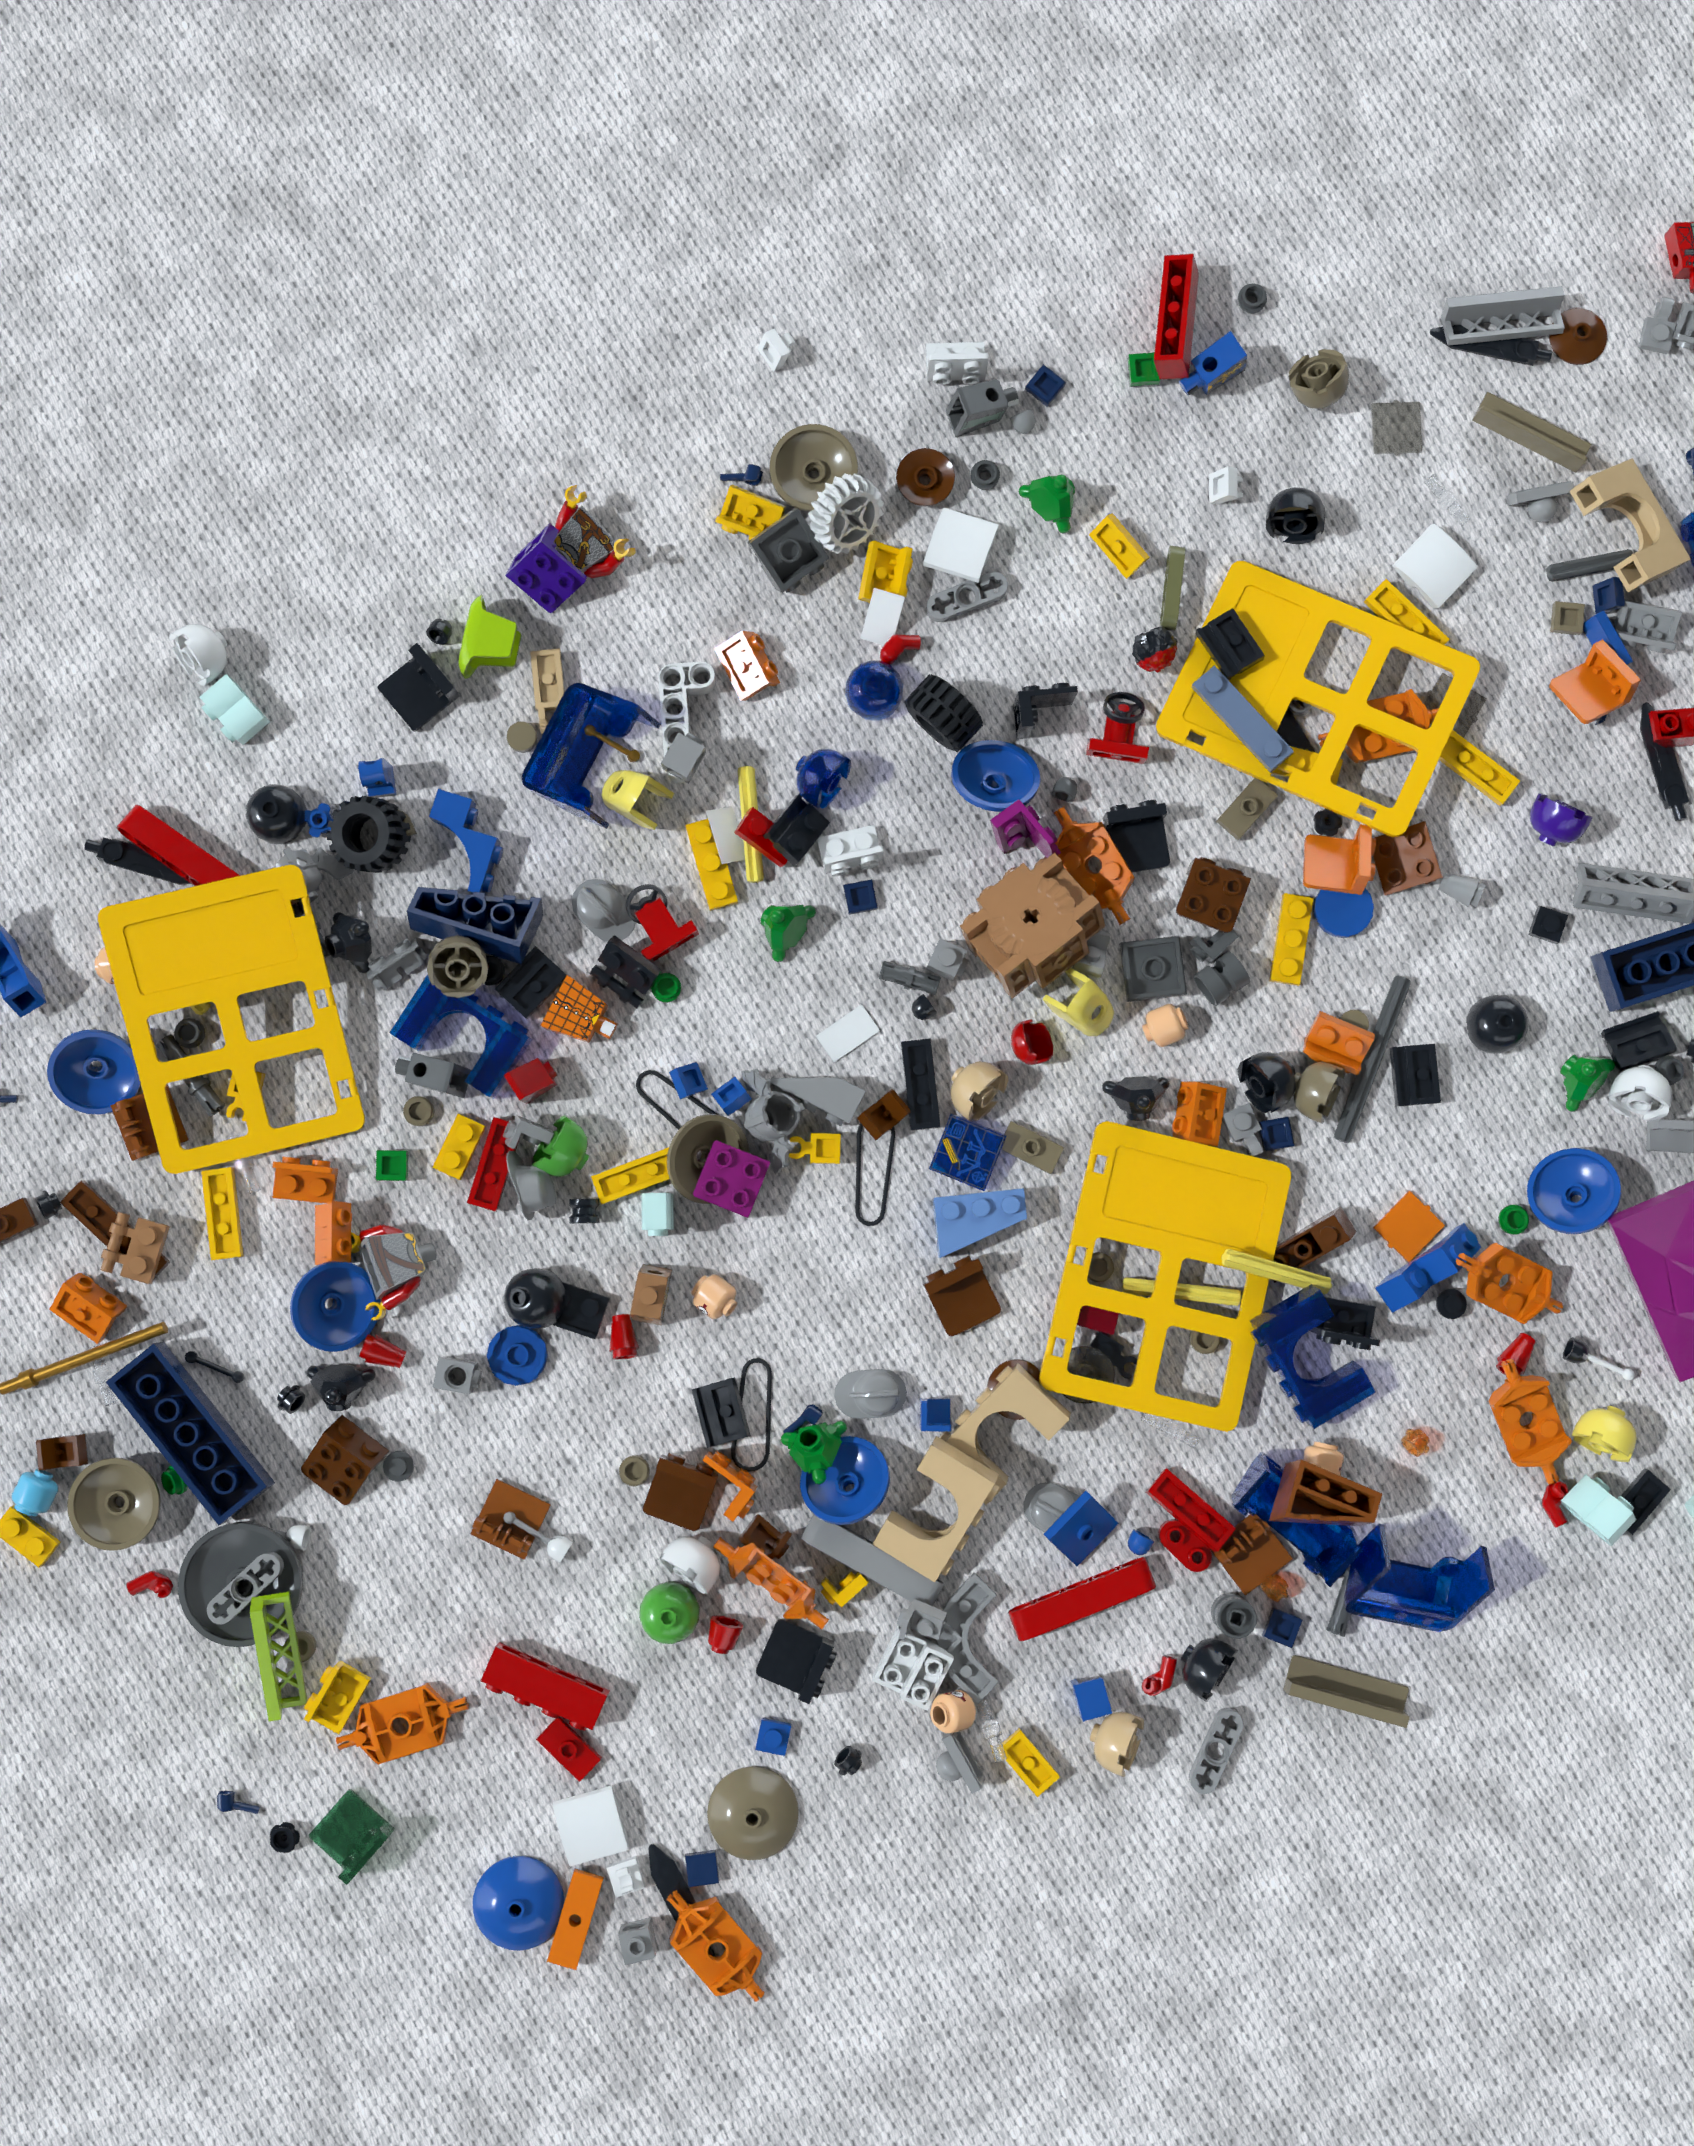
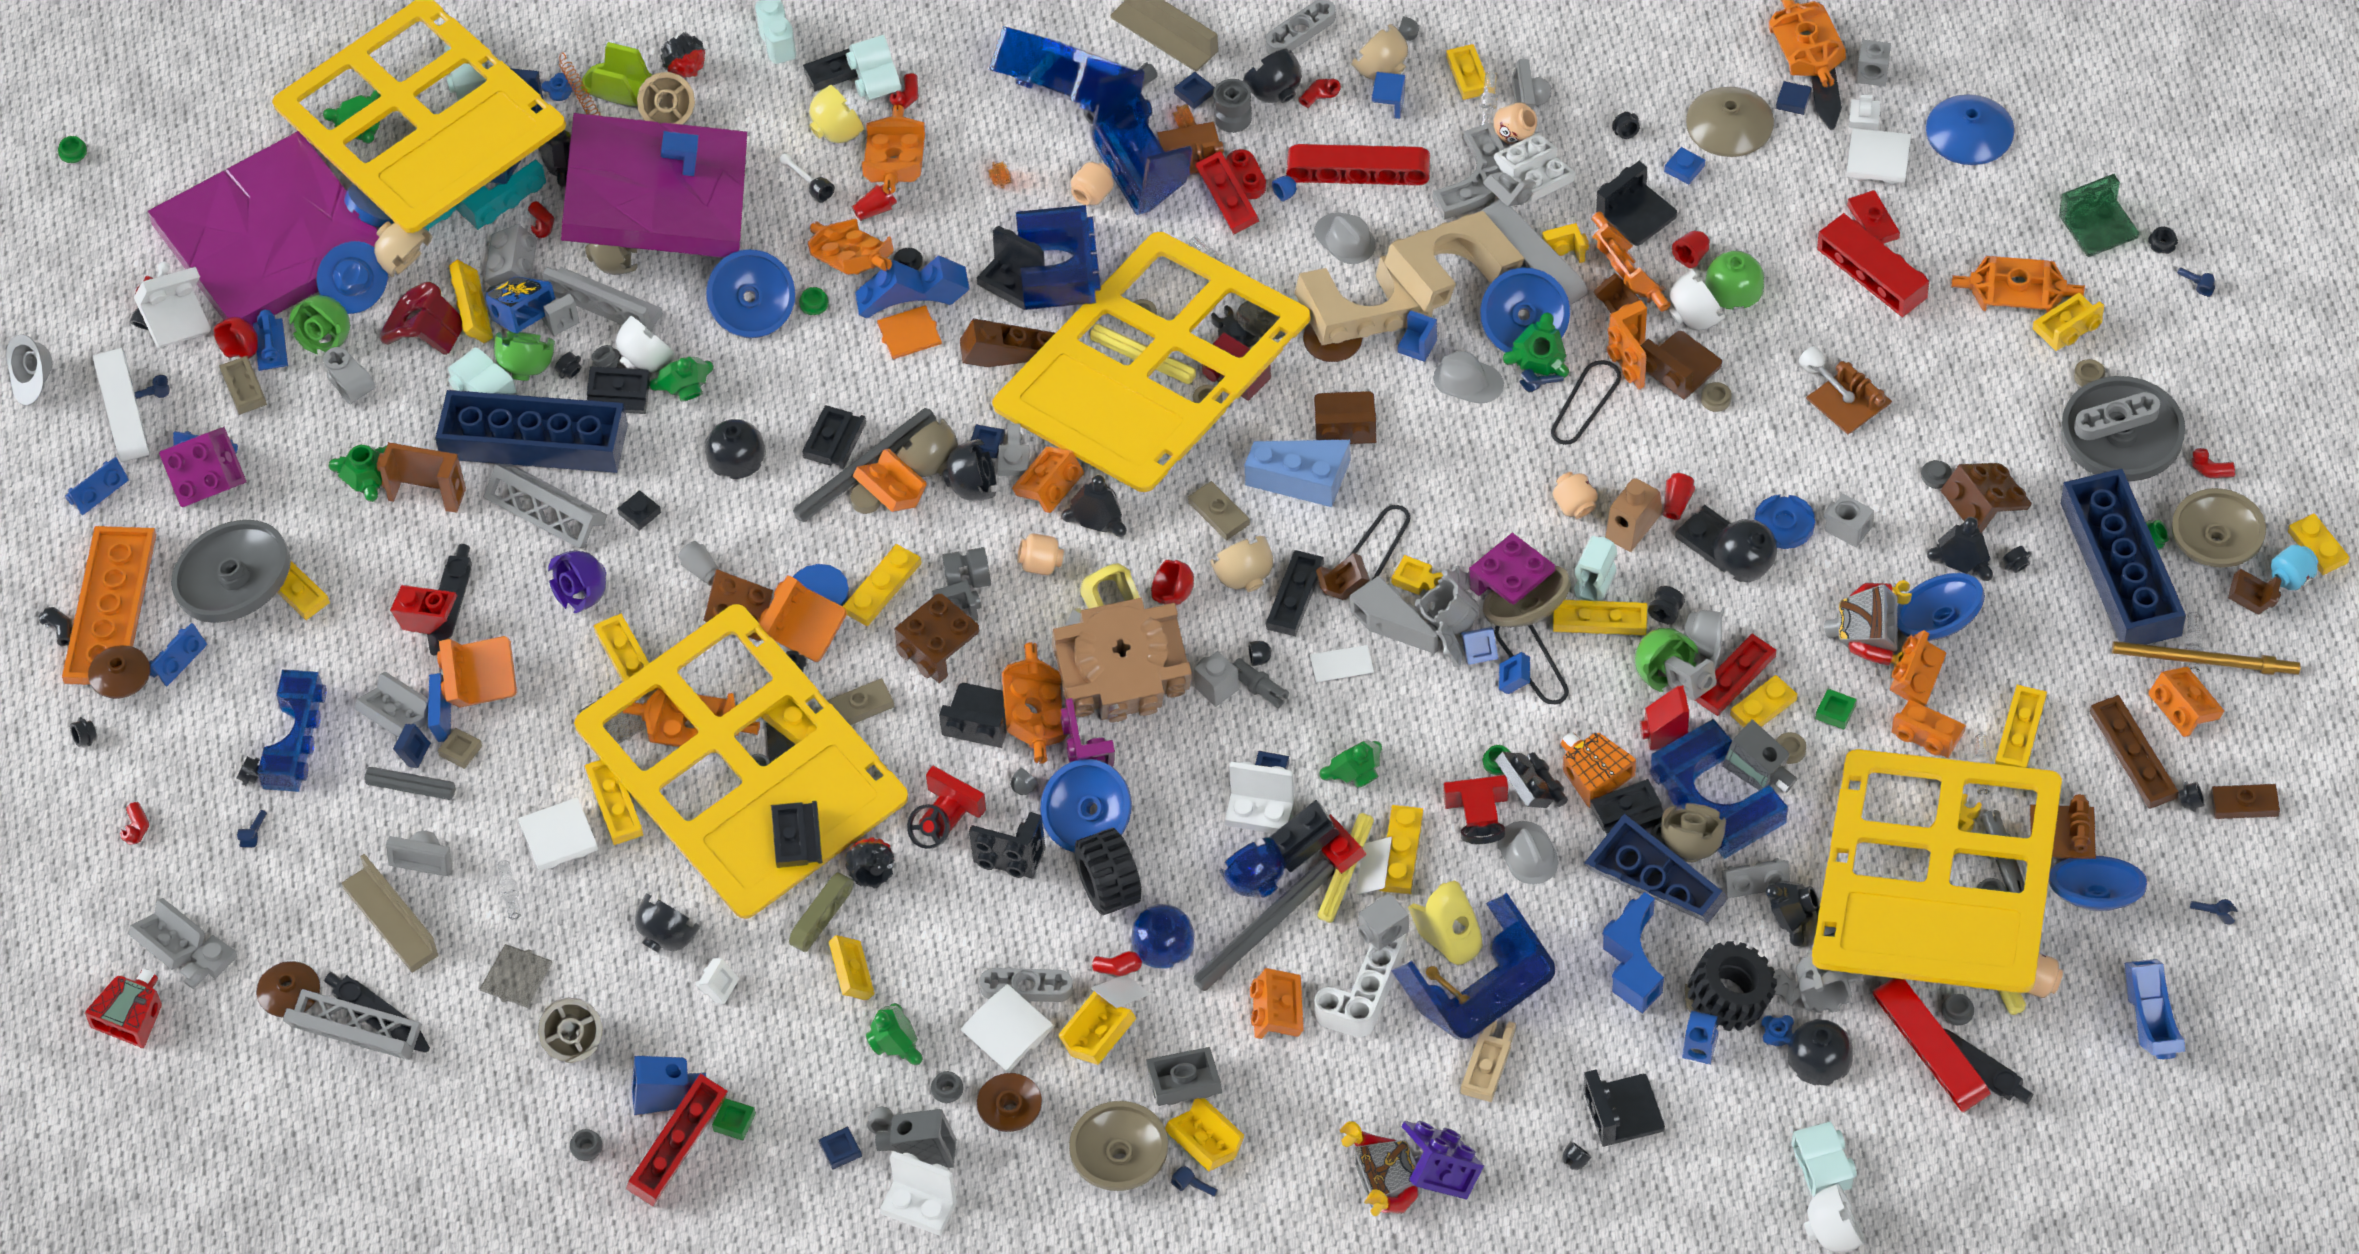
camera: 145 degrees left, 30 degrees down
(143, 1251) = (2110, 716): medium nougat plate -> none
(192, 1357) = (2100, 629): black hinge -> none
(267, 1660) = (2113, 366): lime fence -> none
(297, 1536) = (2057, 454): white hinge -> none
(381, 1352) = (1913, 565): red cone -> none
(487, 640) = (1530, 1118): lime piece -> none
(521, 737) = (1537, 1030): dark tan tile -> none
(569, 1934) = (1923, 98): orange tile -> none
(721, 1412) = (1613, 408): black plate -> none
(795, 737) = (1263, 925): none -> dark grey axle
(849, 495) = (1109, 1084): white gear -> none
(967, 1152) = (1281, 522): clear blue tile -> none
(1081, 1528) = (1331, 208): blue plate -> none
(1110, 1792) = (1409, 28): none -> dark grey hinge
(1153, 968) = (1024, 605): dark grey plate -> none
(1242, 719) = (823, 764): sand blue plate -> none
(1275, 1270) = (1050, 327): light yellow axle -> none
(1322, 1497) = (1111, 141): dark orange wedge -> none
(1628, 492) = (340, 761): tan arch -> none

